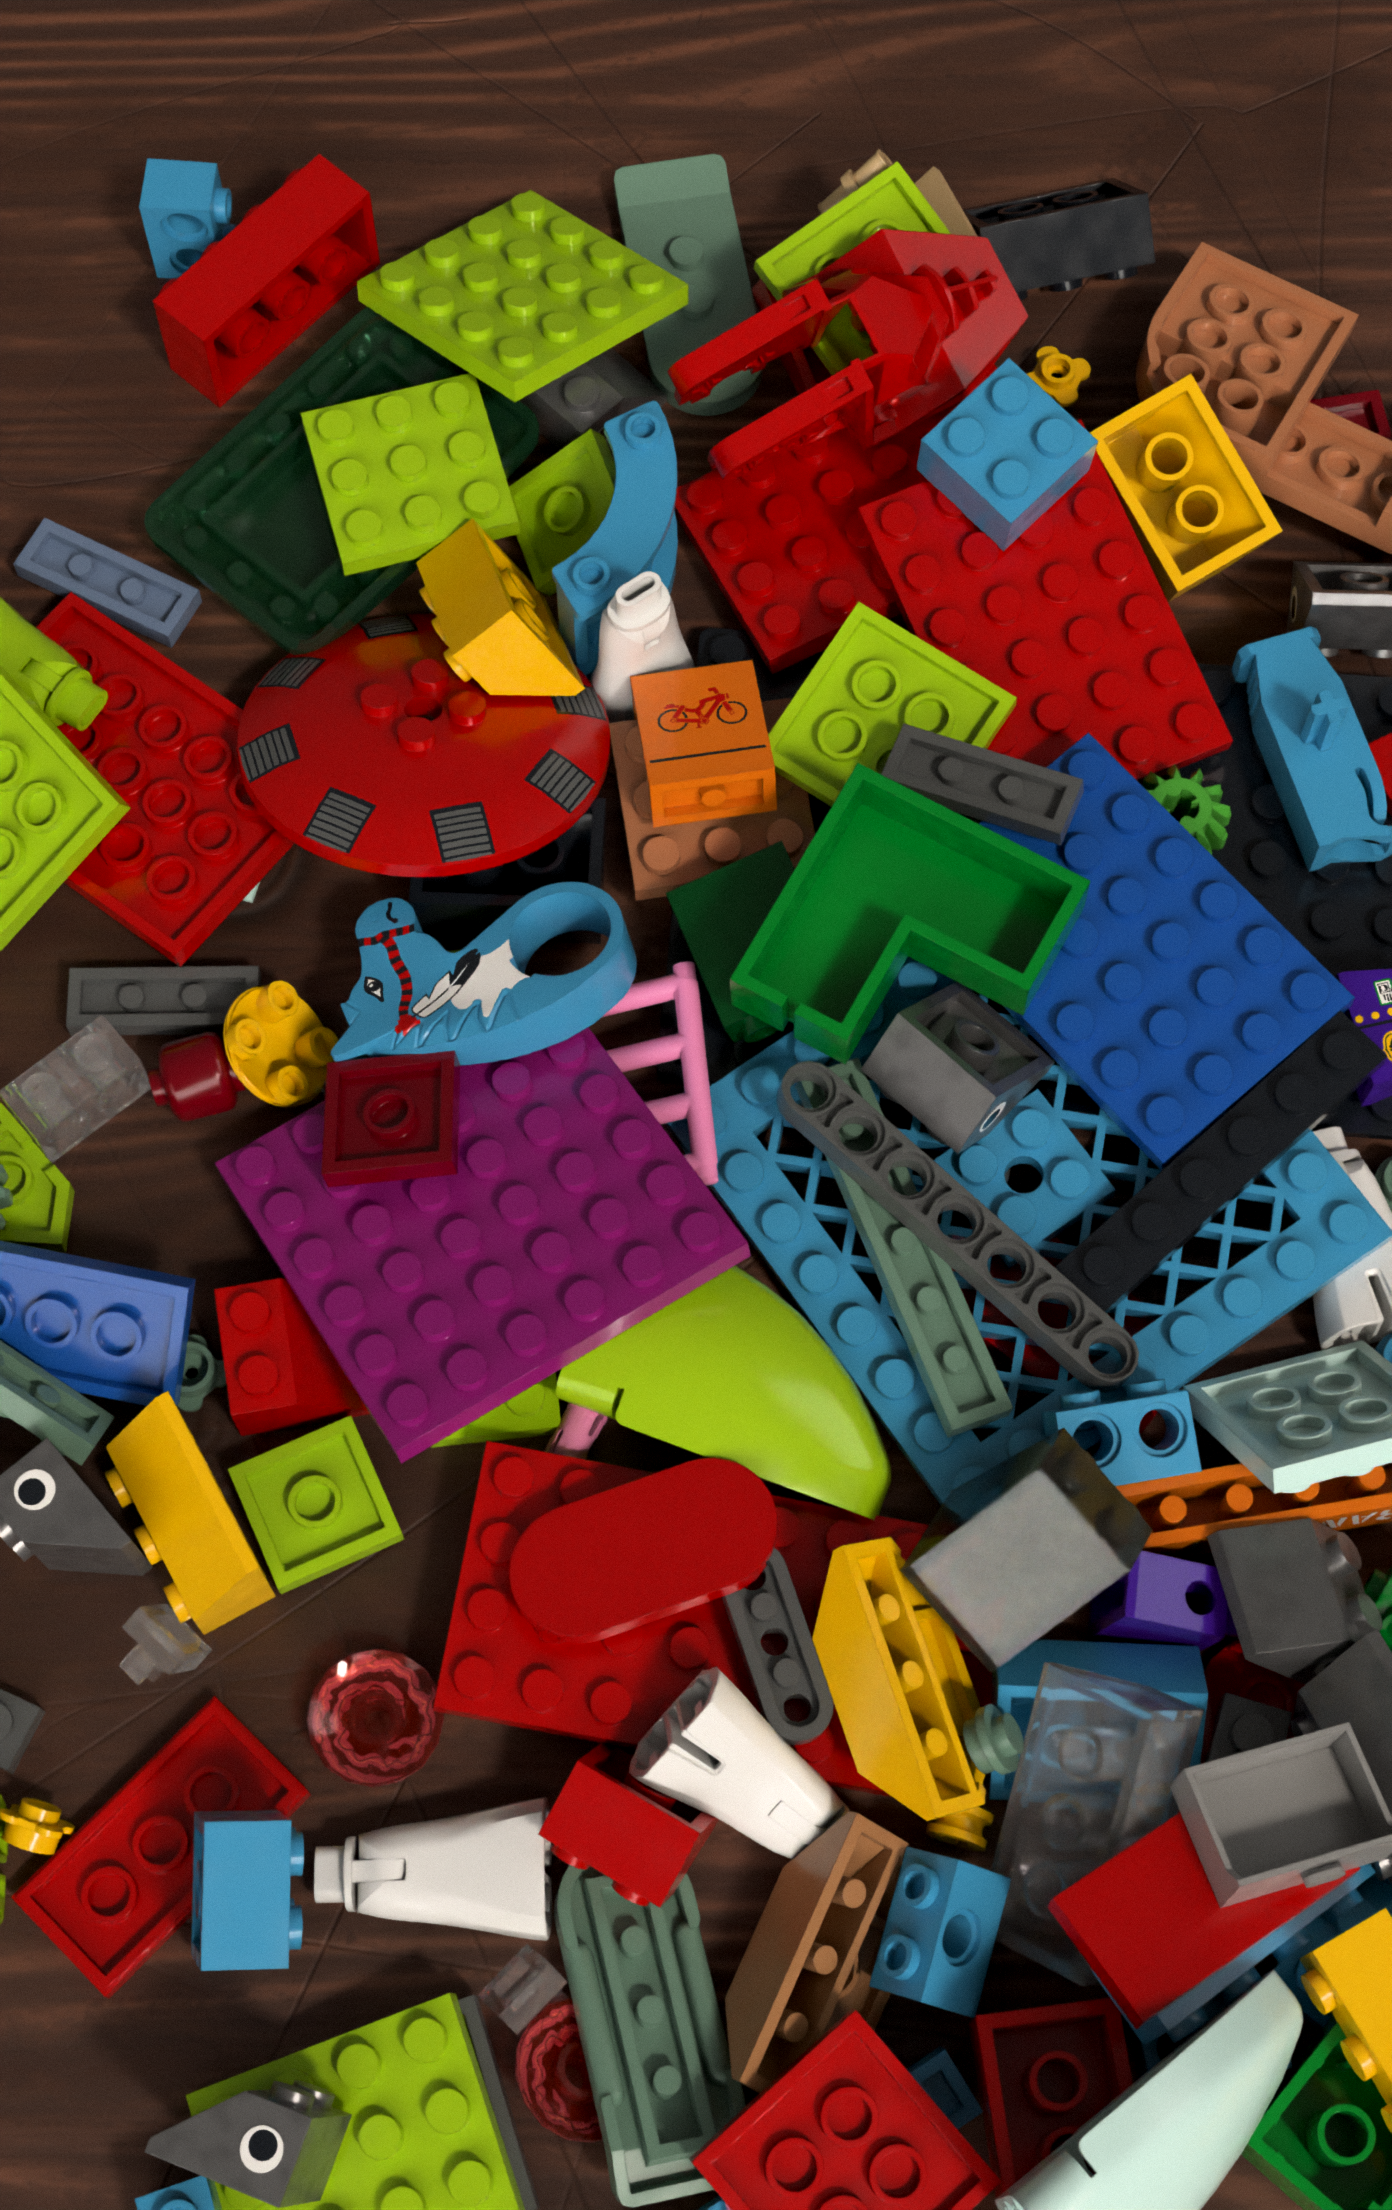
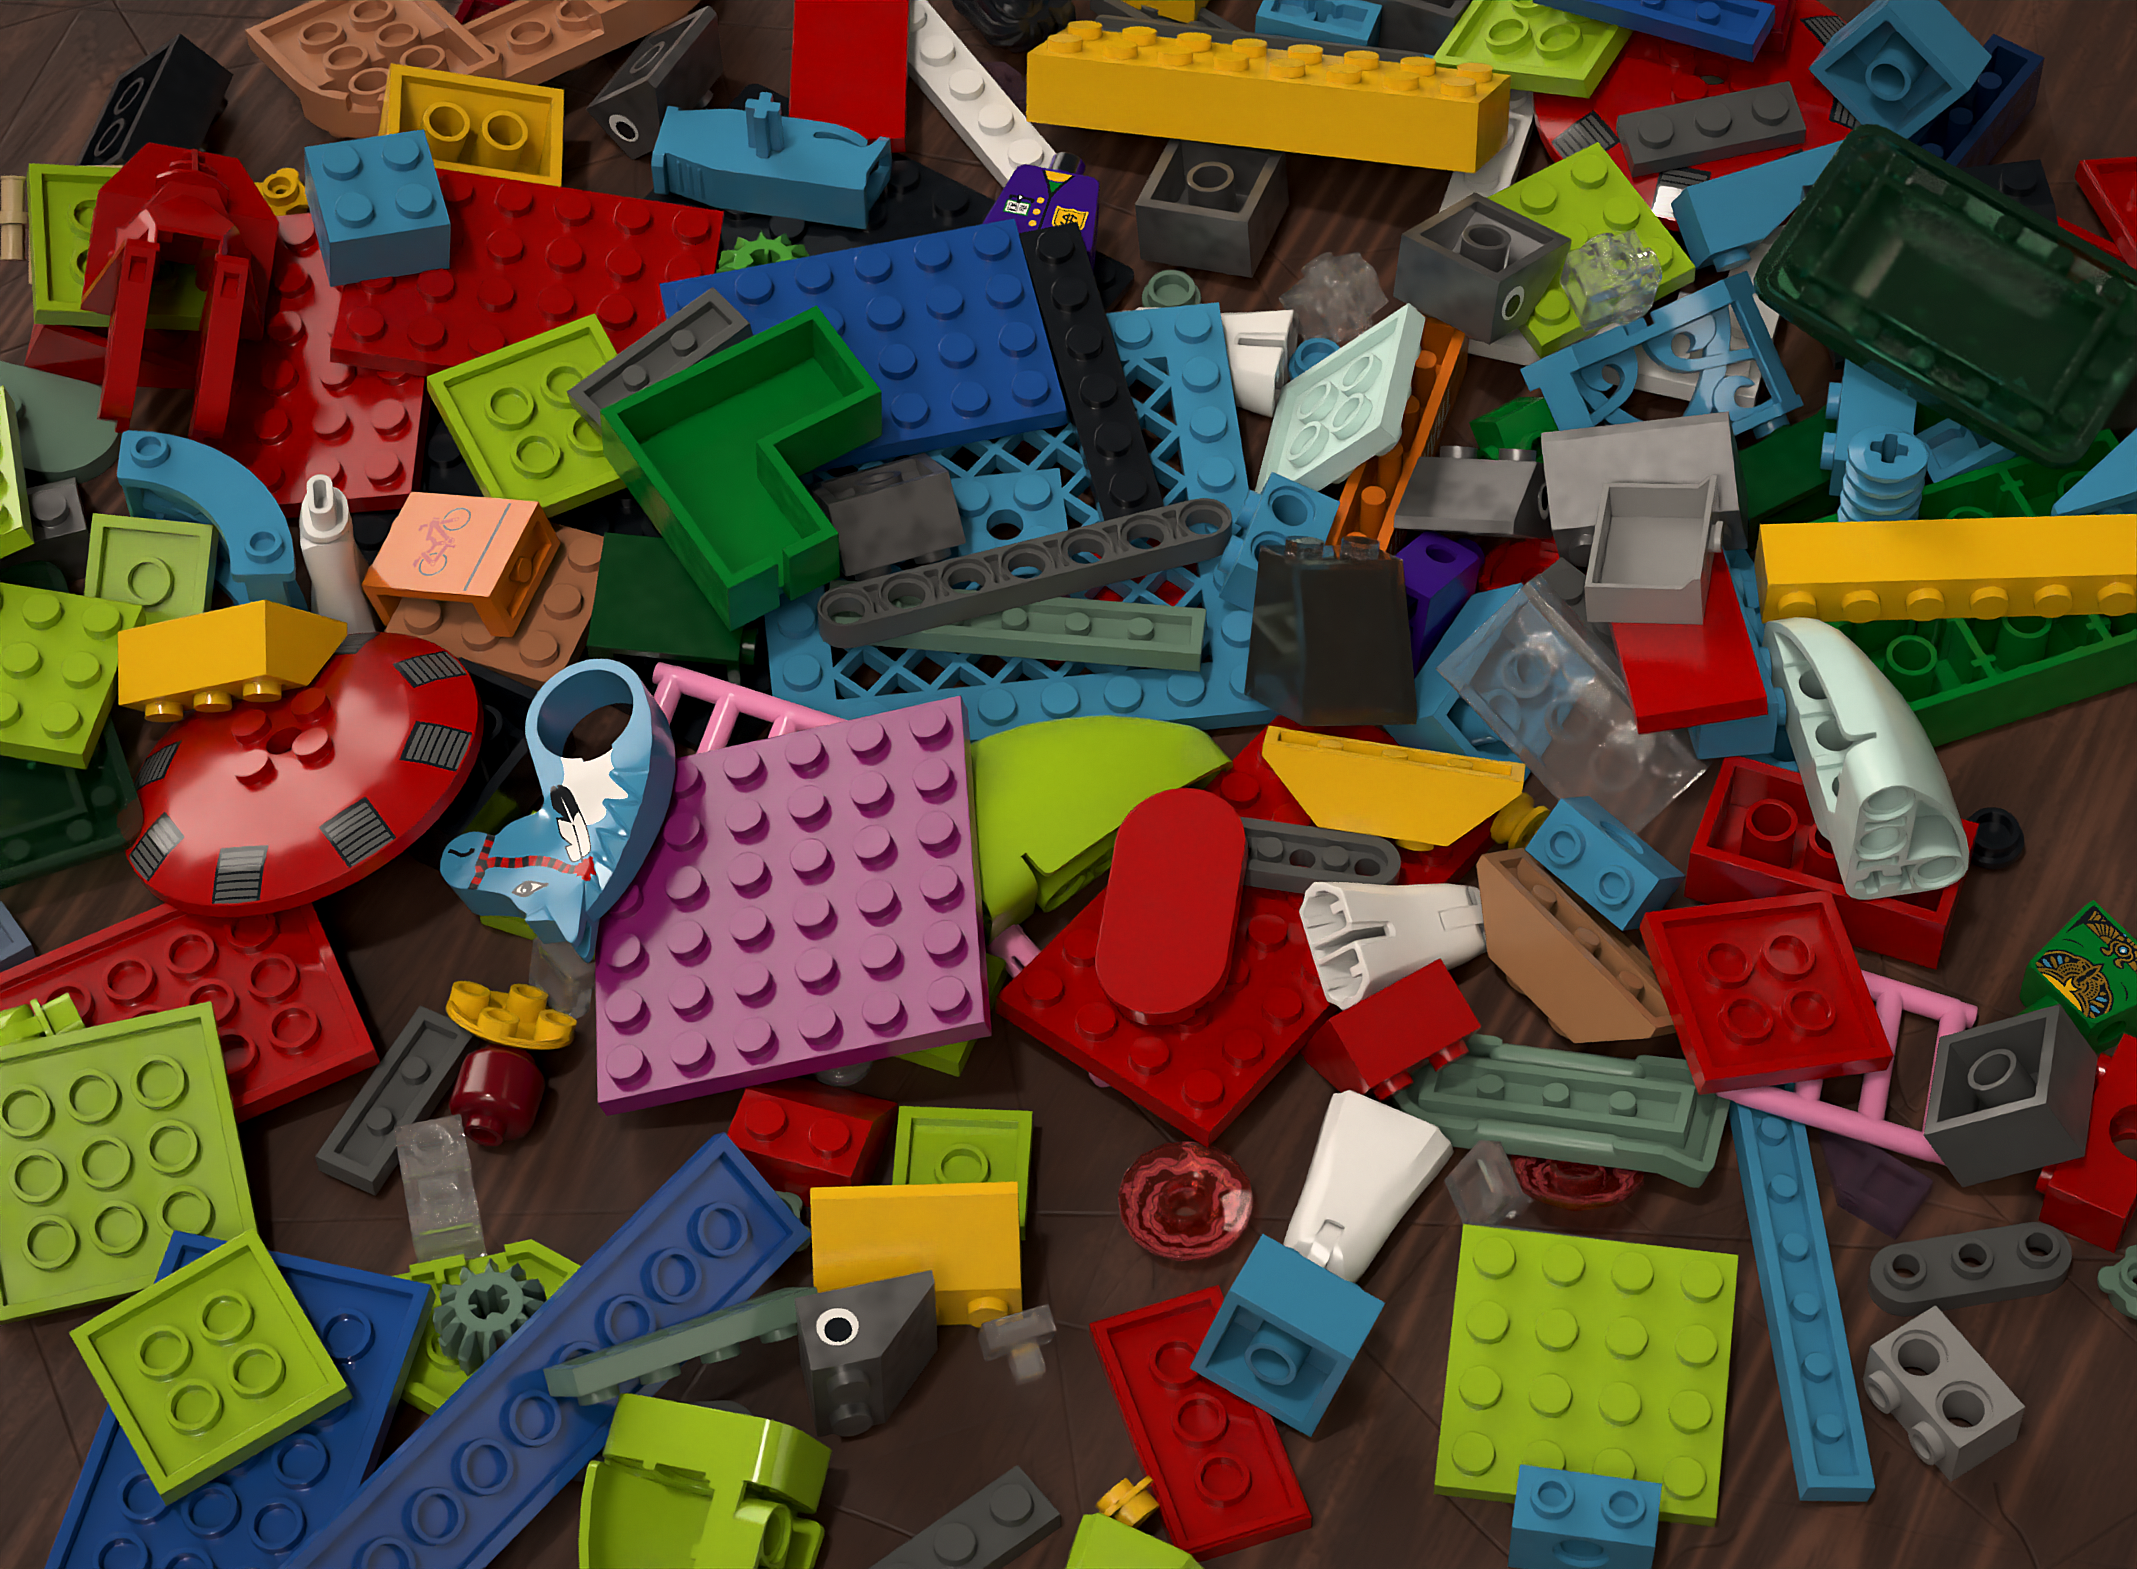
camera: 60 degrees left, 15 degrees down
(261, 2142) = (1526, 1384): flat silver slope -> none
(391, 1118) = (664, 922): dark red plate -> none
(993, 1740) = (1475, 738): sand green plate -> none

